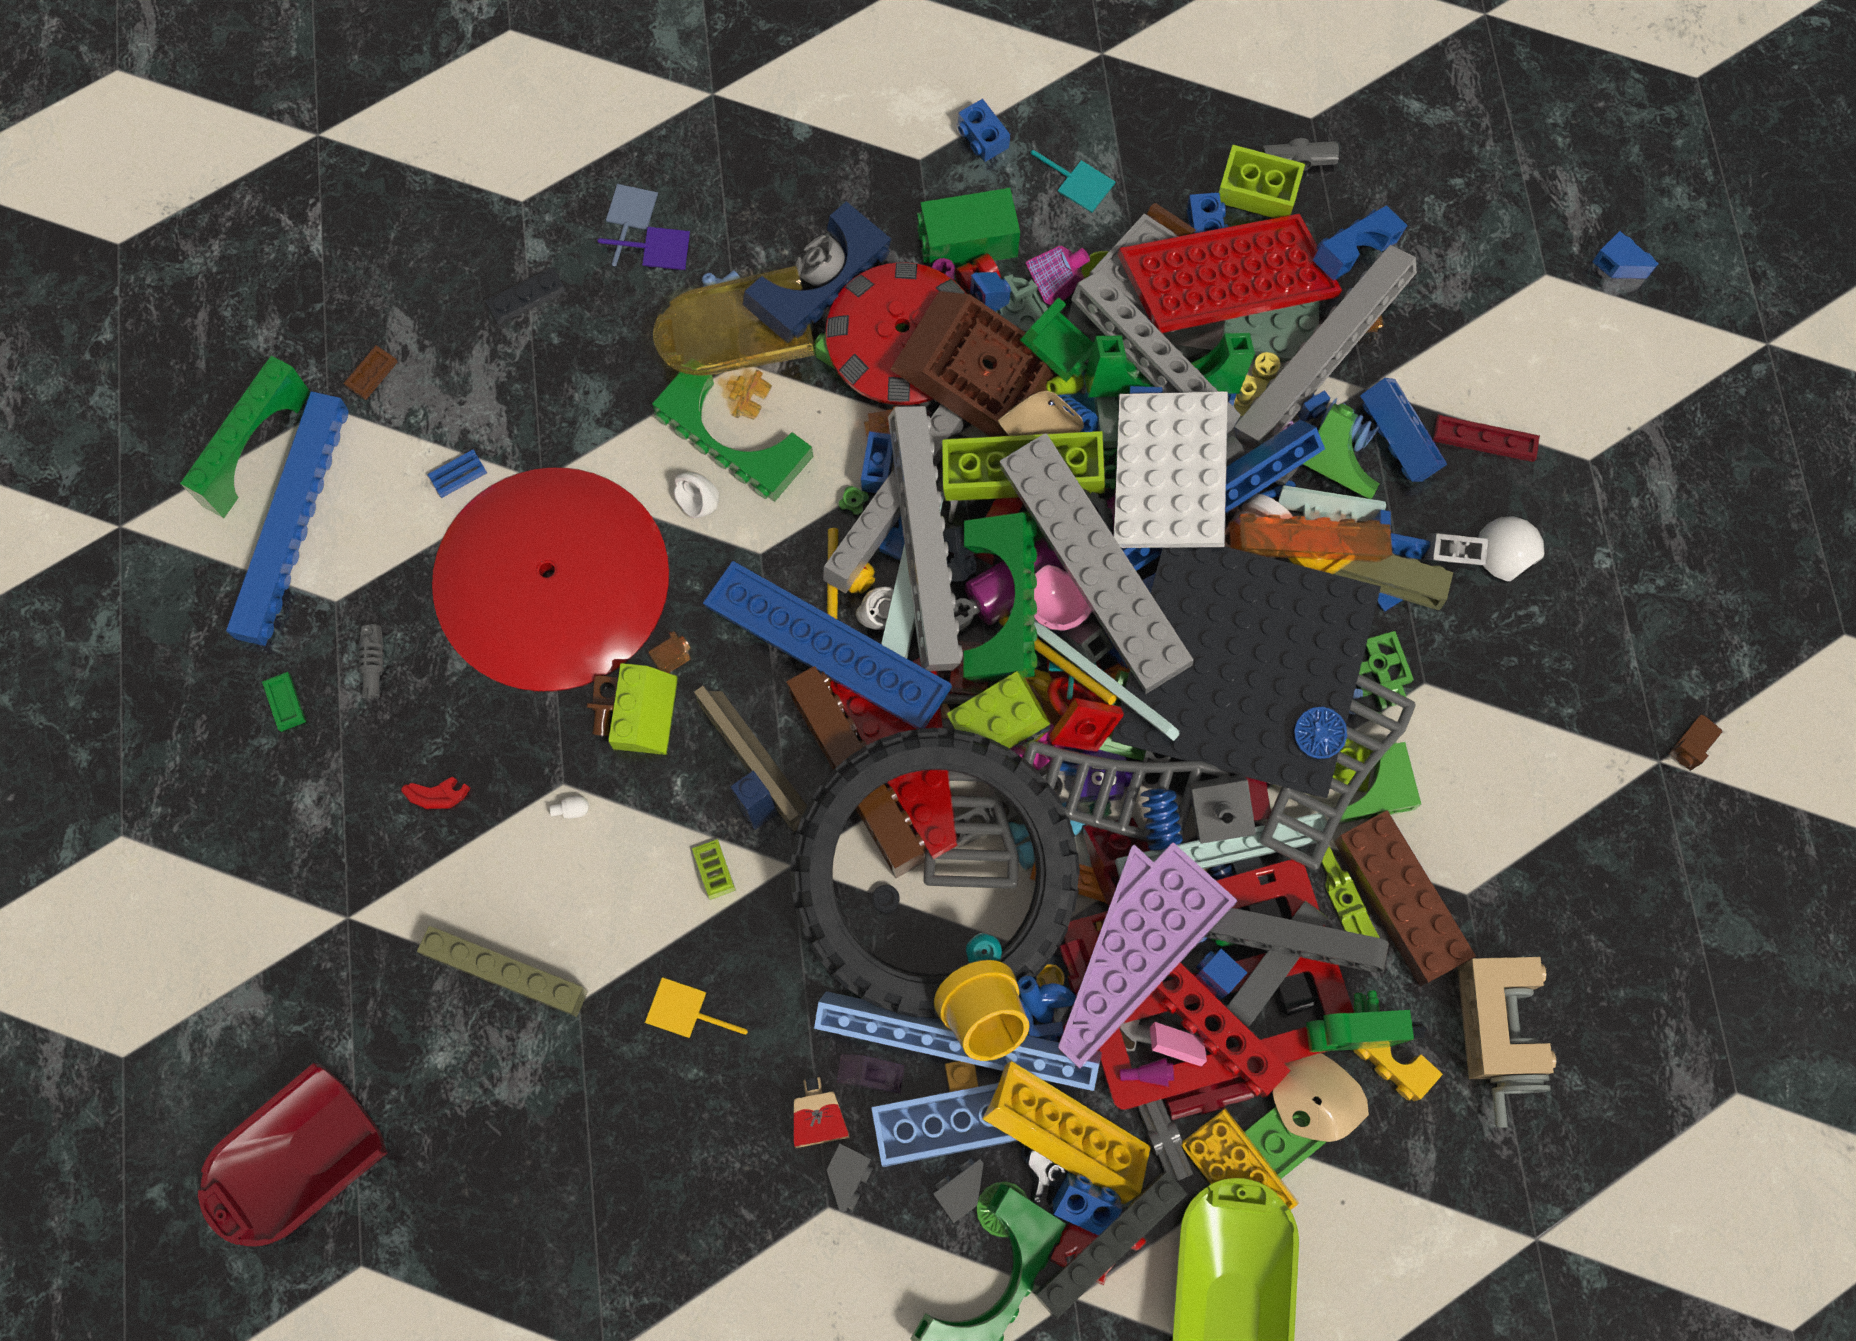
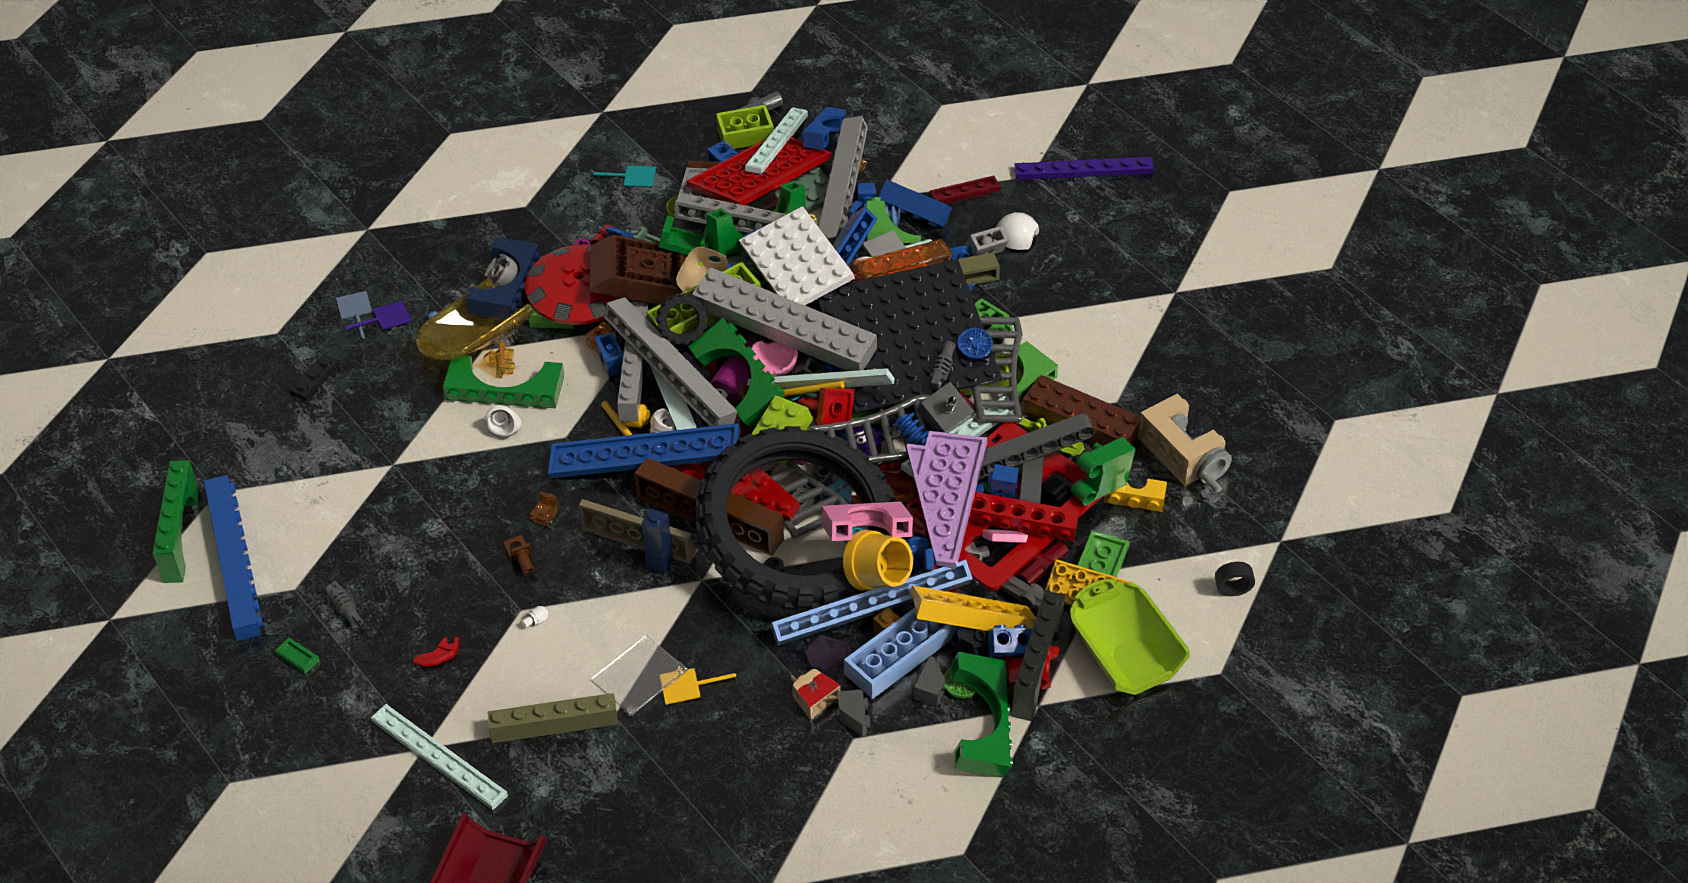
camera: 30 degrees left, 25 degrees down
(355, 942) = (439, 757): none -> light aqua tile
(370, 372) = (236, 459): reddish brown plate -> none
(452, 466) = (330, 483): blue tile -> none
(559, 627) = (435, 512): red dish -> none
(637, 964) = (639, 674): none -> clear piece
(643, 709) = (548, 544): lime slope -> none
(721, 889) = (660, 614): lime slope -> none
(853, 493) = (606, 382): bright green plate -> none
(894, 542) = (650, 388): blue plate -> none
(969, 227) = (583, 216): green brick -> none
(977, 463) = (693, 334): none -> black tyre
(987, 128) = (556, 173): blue brick -> none
(1036, 947) = (840, 519): none -> bright pink arch
(1054, 1033) = (928, 560): none -> blue tile
(1057, 272) = (653, 216): dark pink torso -> none
(1156, 1072) = (1001, 556): magenta cone -> none
(1257, 743) = (942, 365): none -> dark grey hinge
(1270, 363) = (814, 208): light yellow wheel -> none
(1283, 231) = (776, 140): none -> light aqua tile
(1315, 493) = (883, 244): none -> light grey tile
(1342, 1099) = (1120, 530): tan piece -> none
(1351, 378) = (865, 192): none -> blue bracket
(1432, 1276) = (1234, 570): none -> black tyre
(1624, 259) = (980, 77): blue slope -> none
(1669, 488) = (1083, 168): none -> dark purple plate
(1696, 741) = (1187, 272): reddish brown bracket -> none

